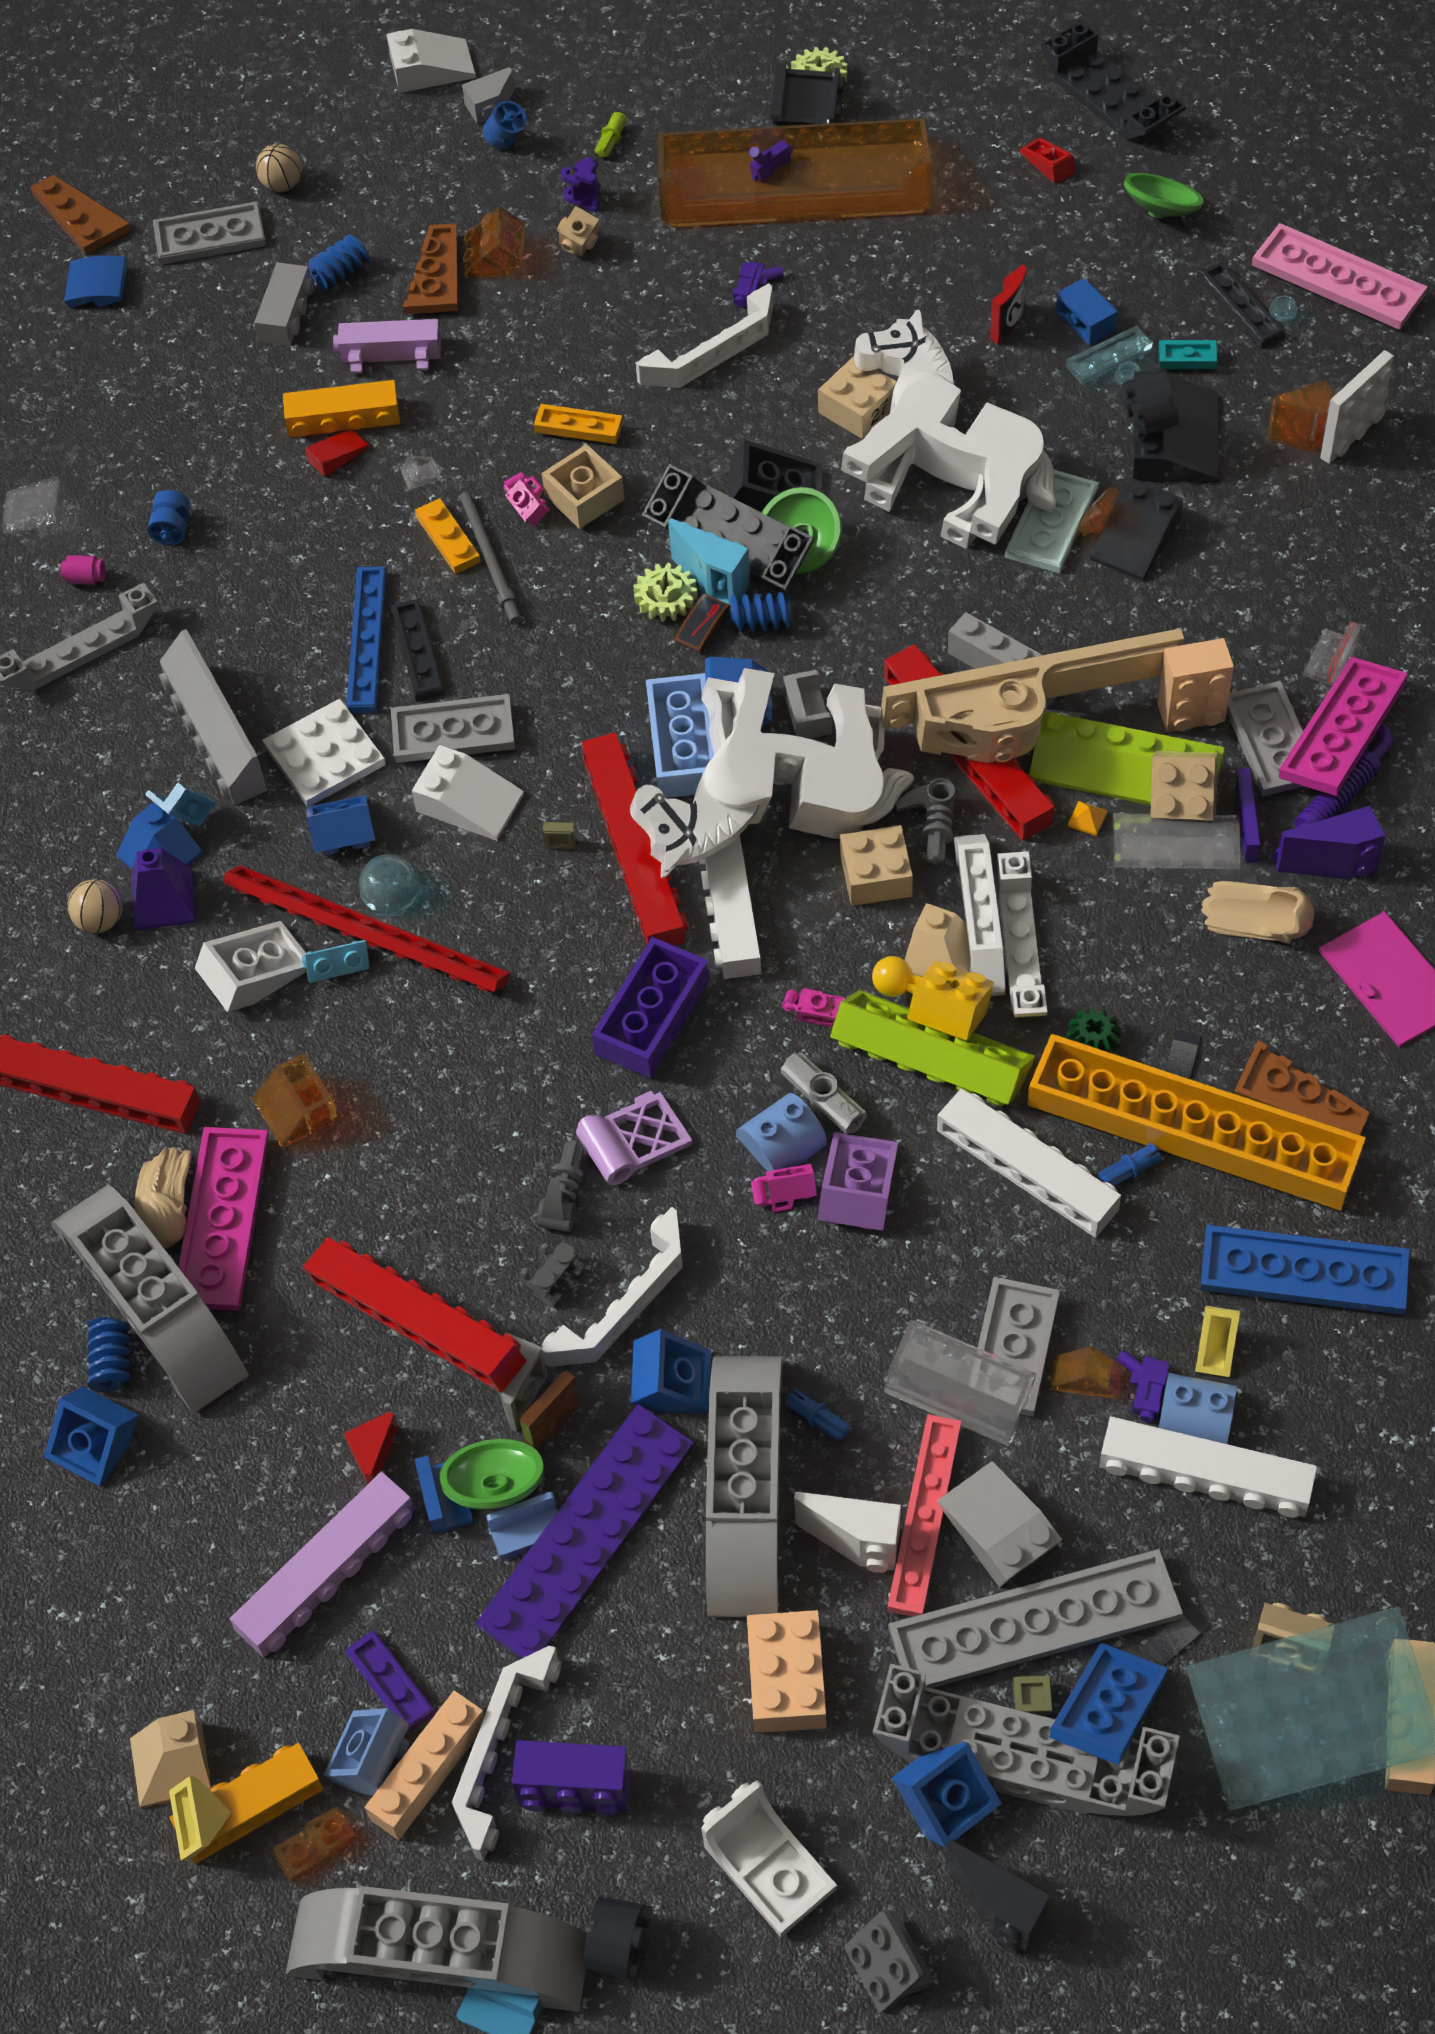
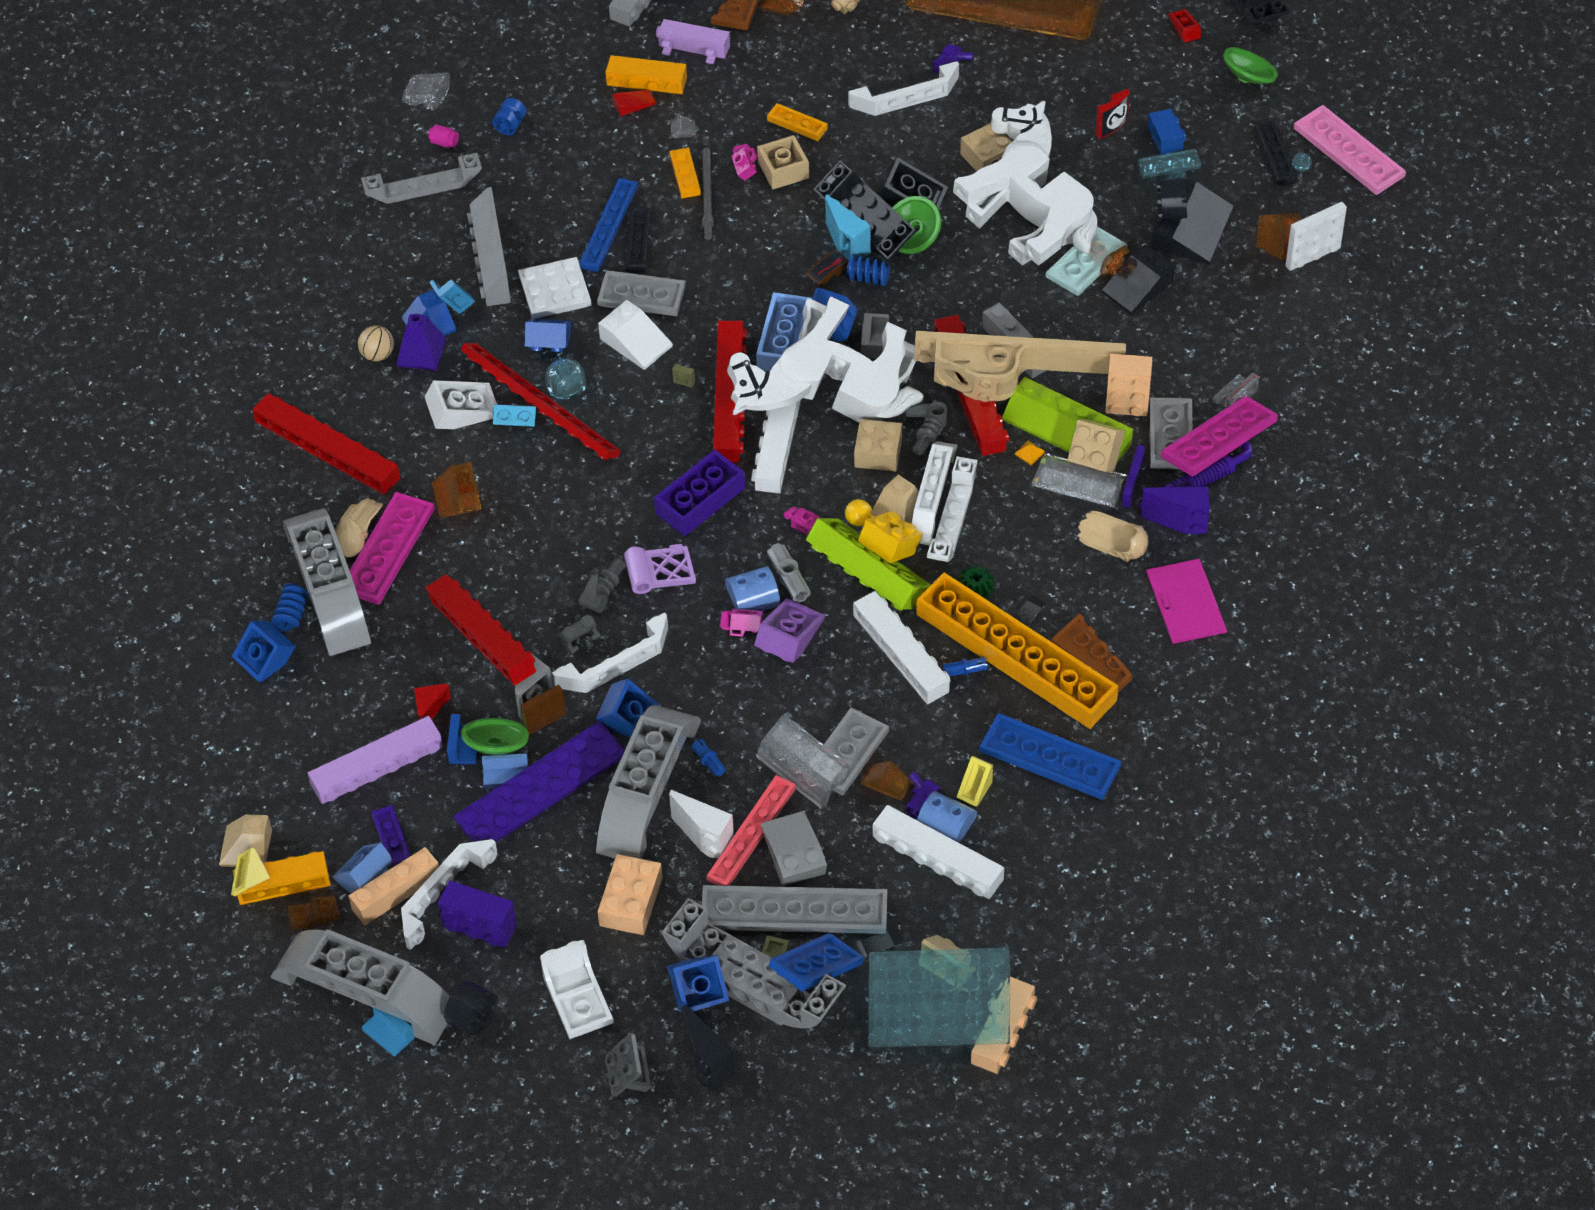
camera: 15 degrees right, 5 degrees down
(665, 592) = (811, 242): yellowish green gear -> none
(1187, 354) = (1222, 176): teal plate -> none

